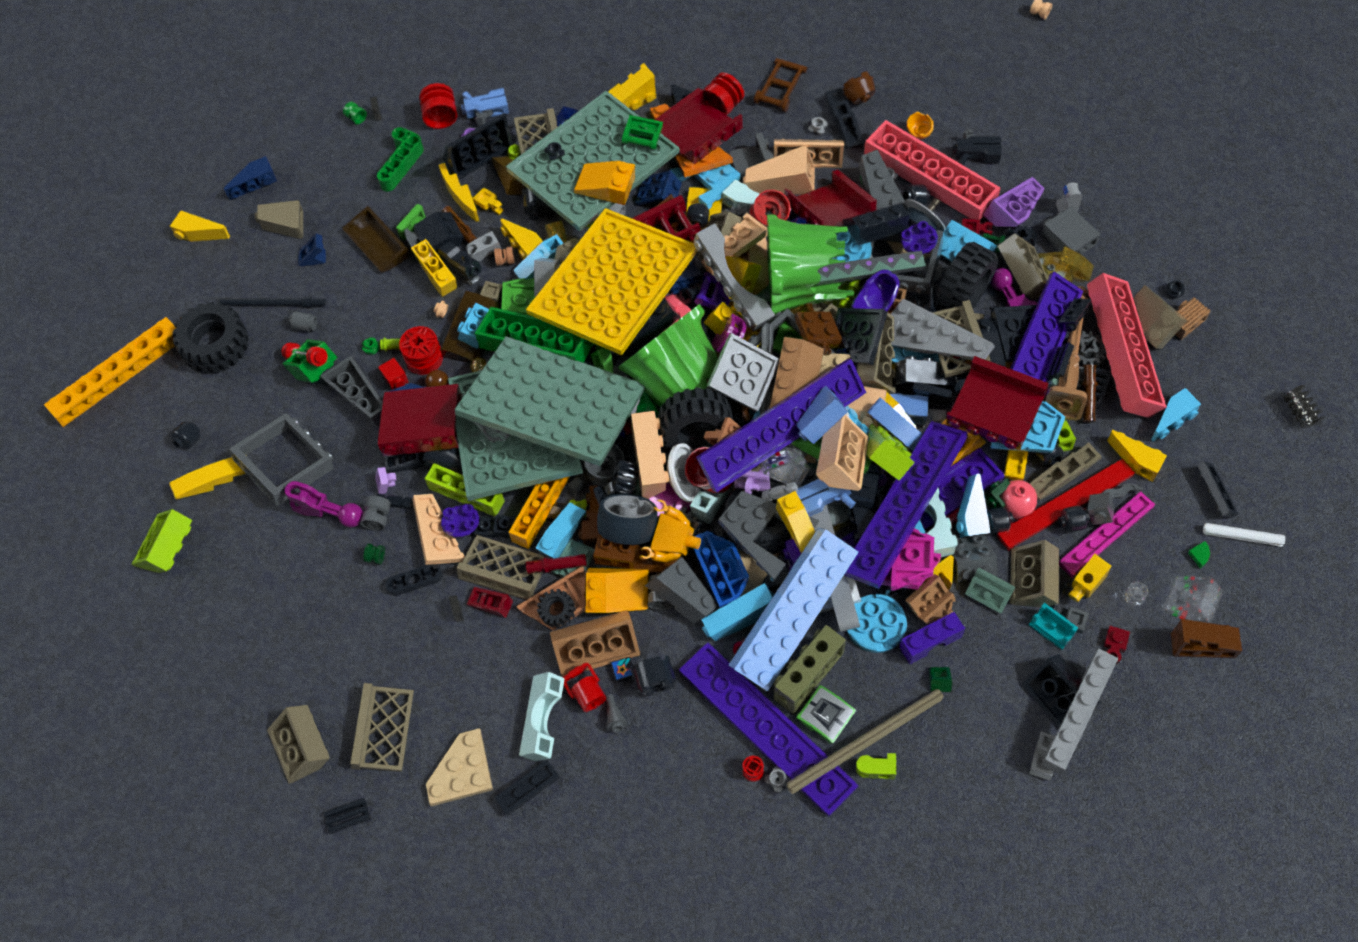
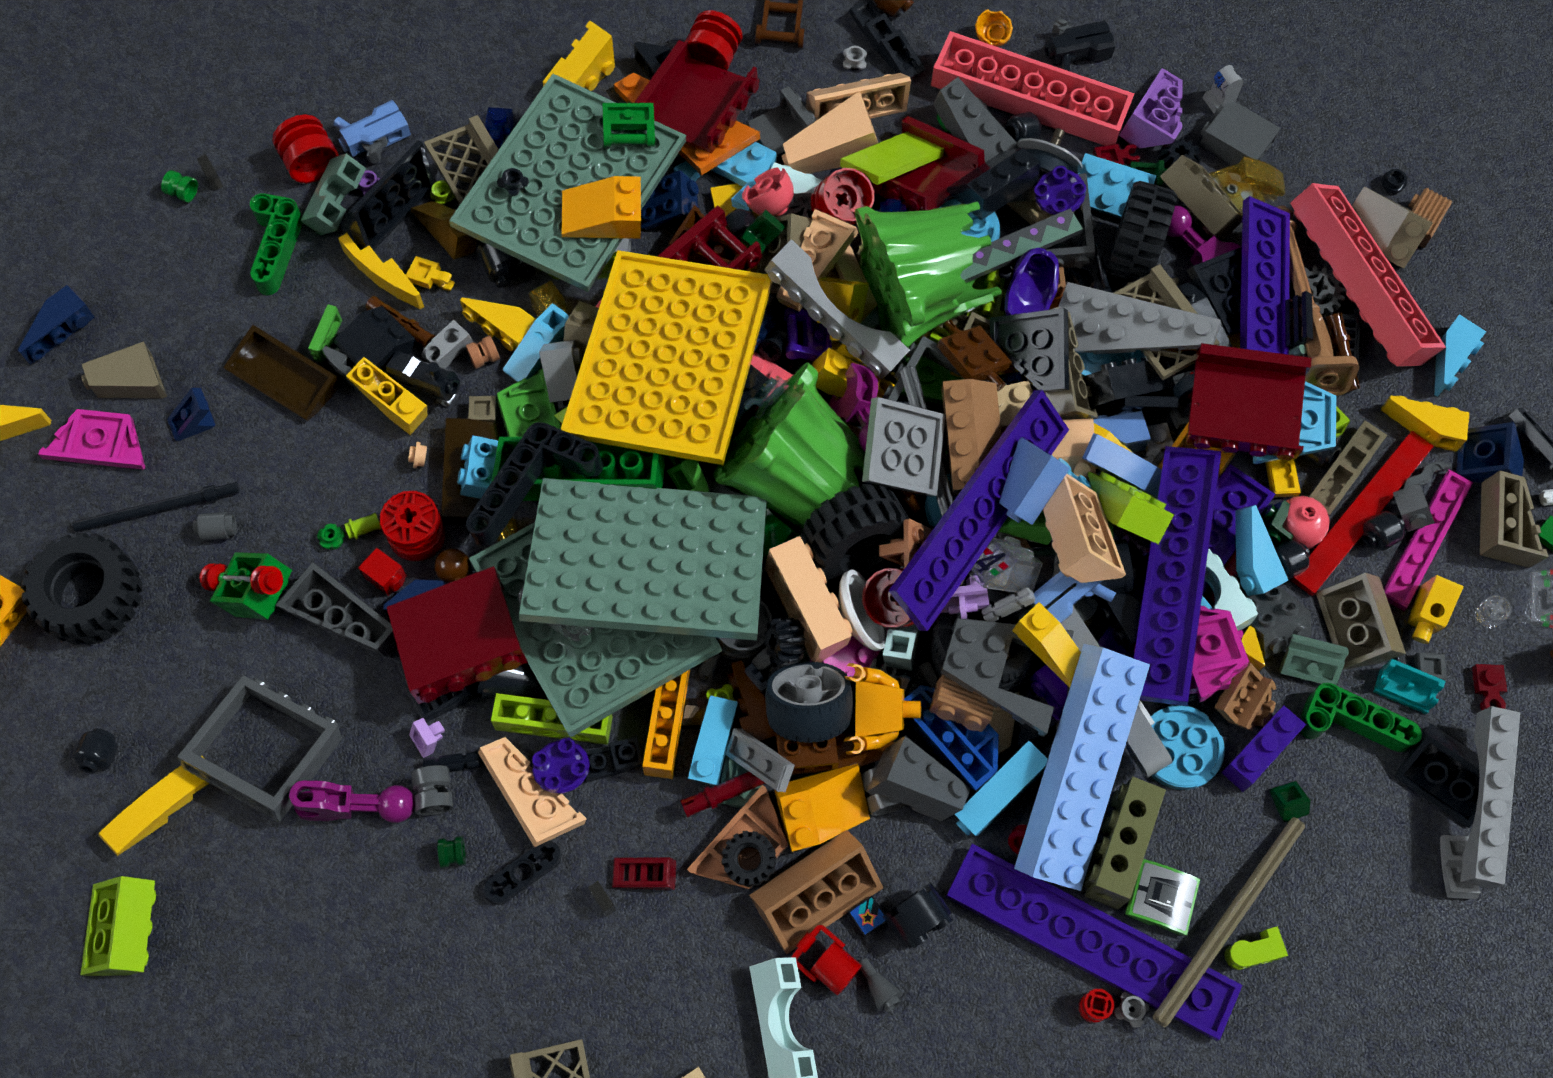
camera: 25 degrees left, 5 degrees up
(252, 253) = (97, 440): none -> dark pink wing
(452, 129) = (338, 179): none -> sand green arch
(493, 329) = (526, 474): none -> black beam
(493, 579) = (637, 839): dark tan fence -> none
(583, 547) = (759, 760): none -> light grey tile
(672, 317) = (771, 391): none -> clear light blue plate
(707, 218) = (763, 230): none -> dark green bracket
(723, 198) = (771, 192): none -> coral cylinder
(727, 549) = (958, 704): none -> medium nougat brick
(814, 192) = (893, 157): none -> lime tile
(1009, 640) = (1396, 732): none -> green beam
(1075, 313) = (1293, 247): black hinge -> none
(1168, 537) = (1507, 521): none -> dark tan wedge
(1174, 489) = (1490, 451): none -> dark blue slope

